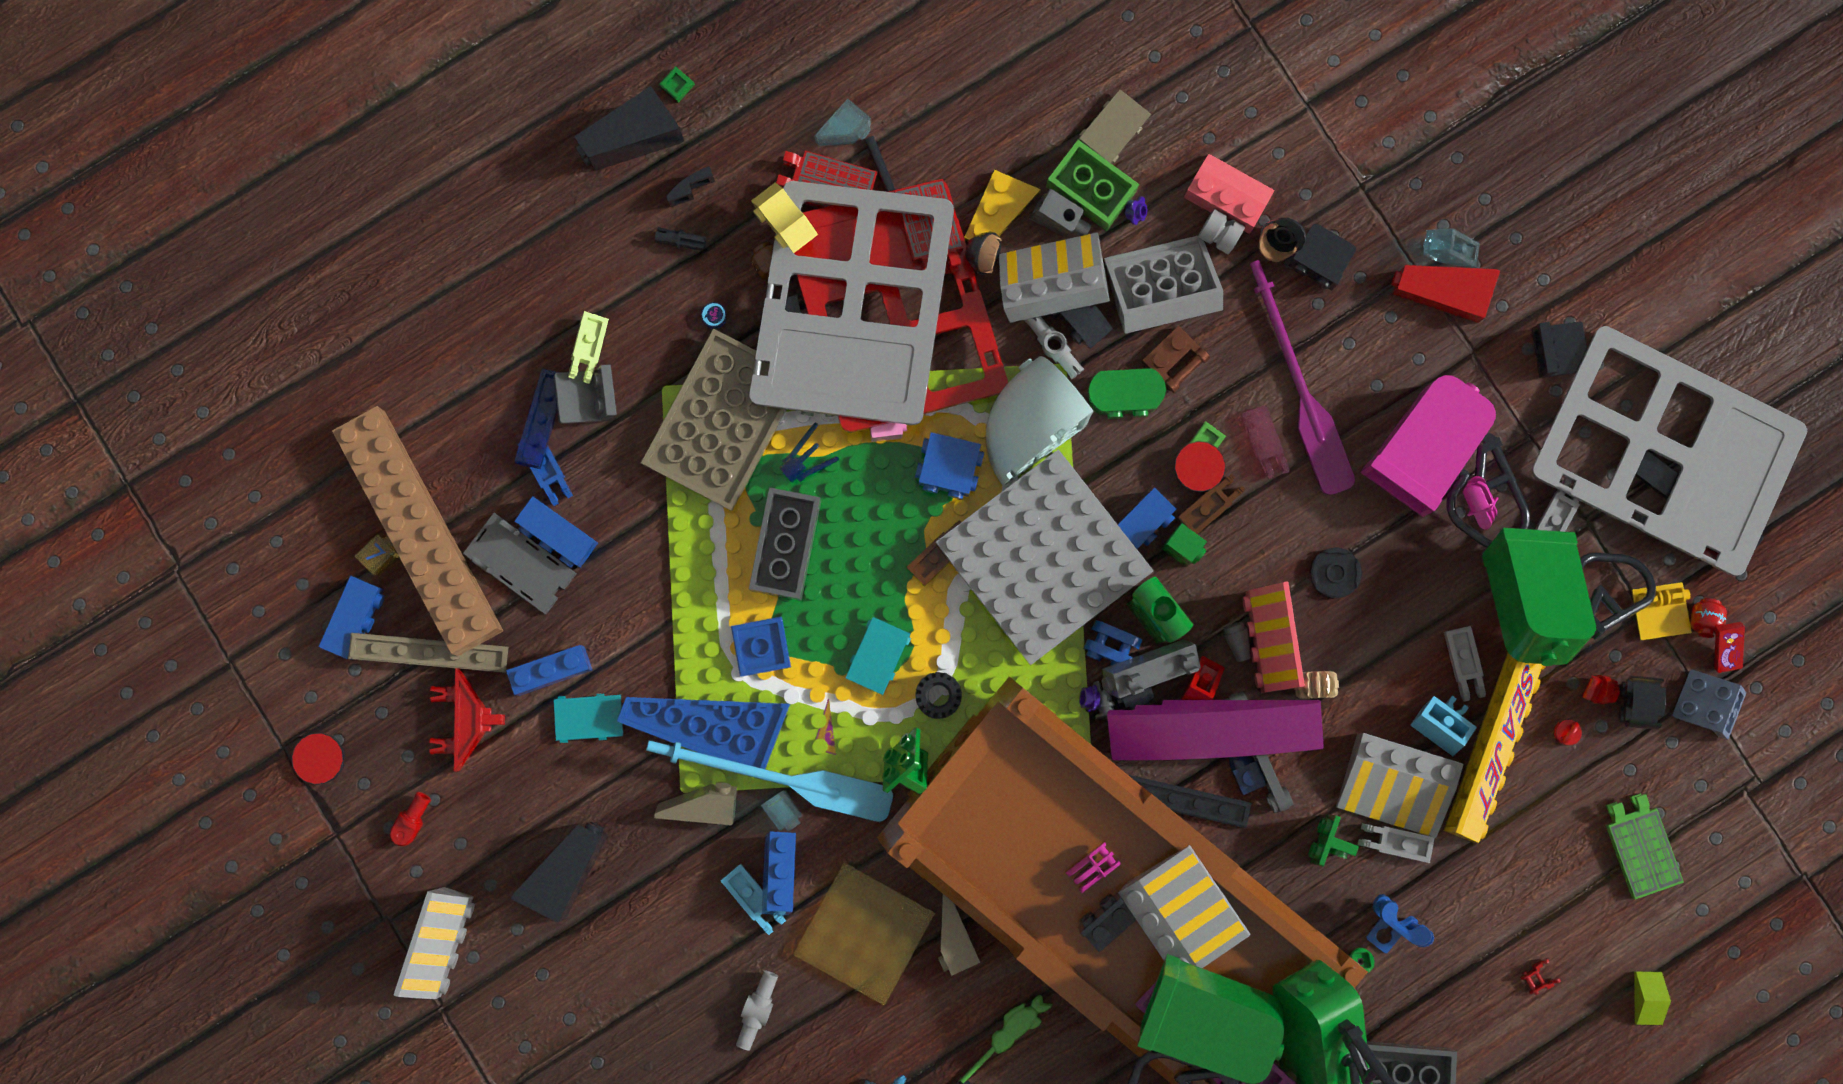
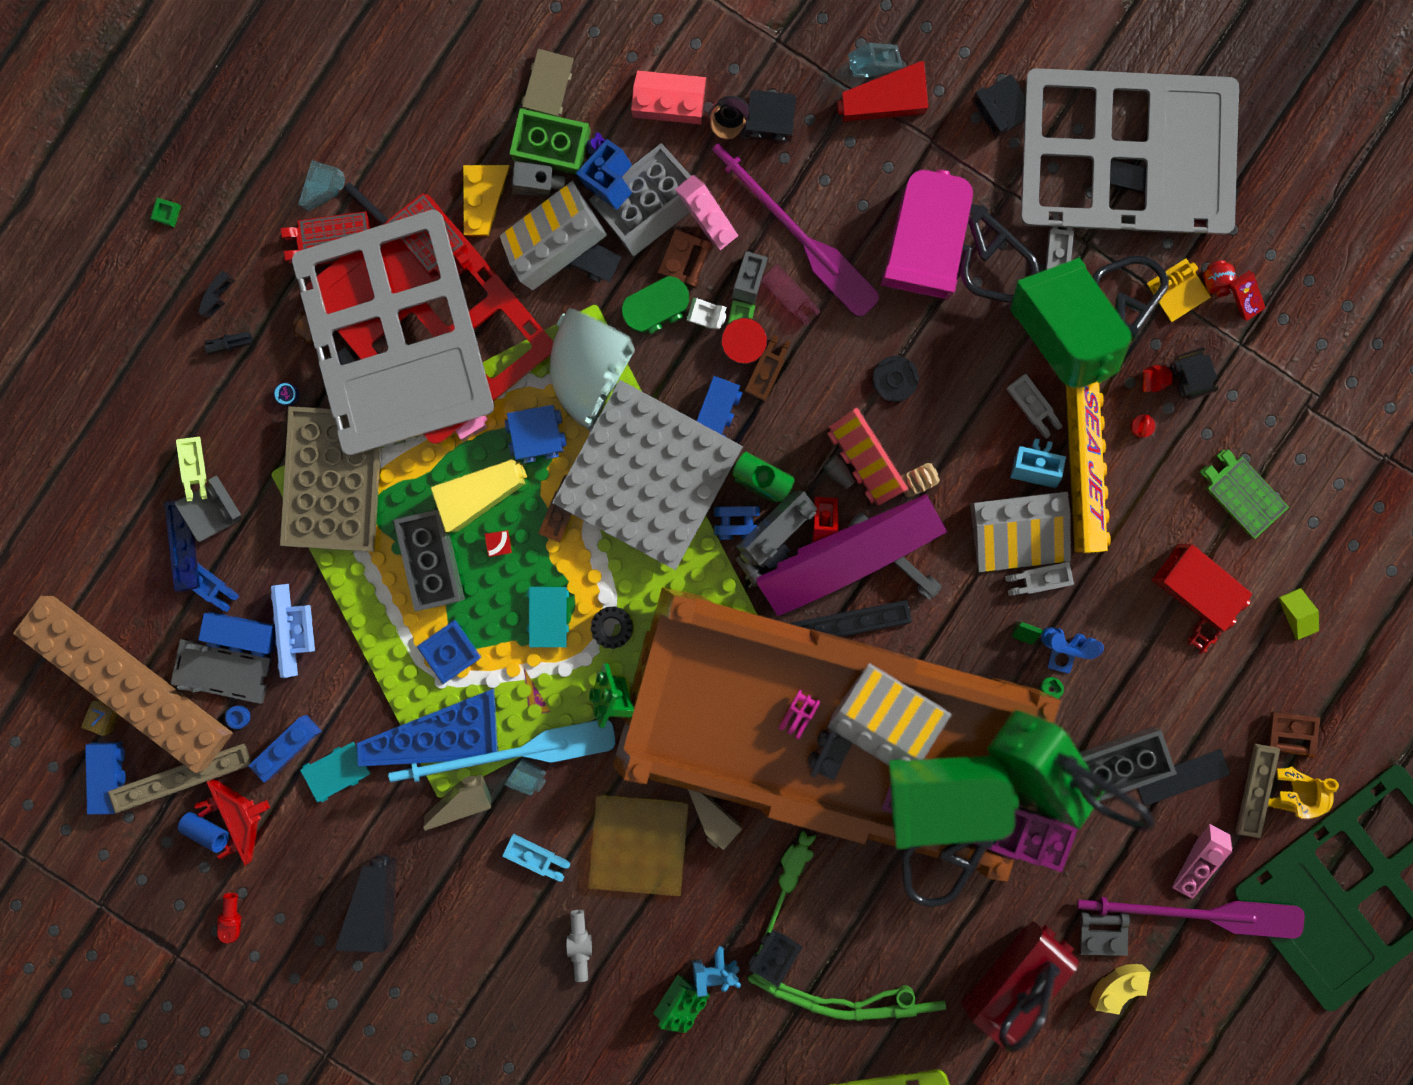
camera: 15 degrees left, 5 degrees up
(318, 758) = (132, 902): red tile -> none
(427, 718) = (203, 832): none -> blue pin
(435, 944) = (292, 1011): light grey slope -> none
(514, 617) = (237, 717): none -> blue tile
(612, 554) = (292, 630): none -> light blue bracket
(629, 132) = (141, 272): black slope -> none
(778, 873) = (546, 830): blue brick -> none
(784, 218) = (303, 287): light yellow brick -> none
(794, 467) = (407, 491): clear blue plant -> none
(861, 559) = (498, 543): none -> red tile
(864, 498) = (474, 494): none -> light yellow slope
(983, 252) = (485, 240): piece -> none
(1061, 355) = (589, 298): light grey pin -> none
(1089, 698) = (737, 574): dark purple plate -> none
(1132, 240) = (604, 174): none -> blue brick
(1173, 423) = (706, 314): none -> white bracket
(1185, 545) = (760, 413): green brick -> none
(1218, 322) = (706, 212): none -> bright pink brick
(1221, 231) = (676, 133): light grey wheel -> none
(1232, 406) = (749, 277): none -> dark grey plate
(1246, 773) = (893, 578): dark blue plate -> none
(1328, 843) = (983, 606): green bracket -> none
(1359, 891) = (1026, 632): none -> green slope
(1480, 502) = (990, 266): dark pink arm -> none
(1561, 924) = (1202, 586): none -> red slope
(1710, 703) = (1250, 349): sand blue bracket -> none

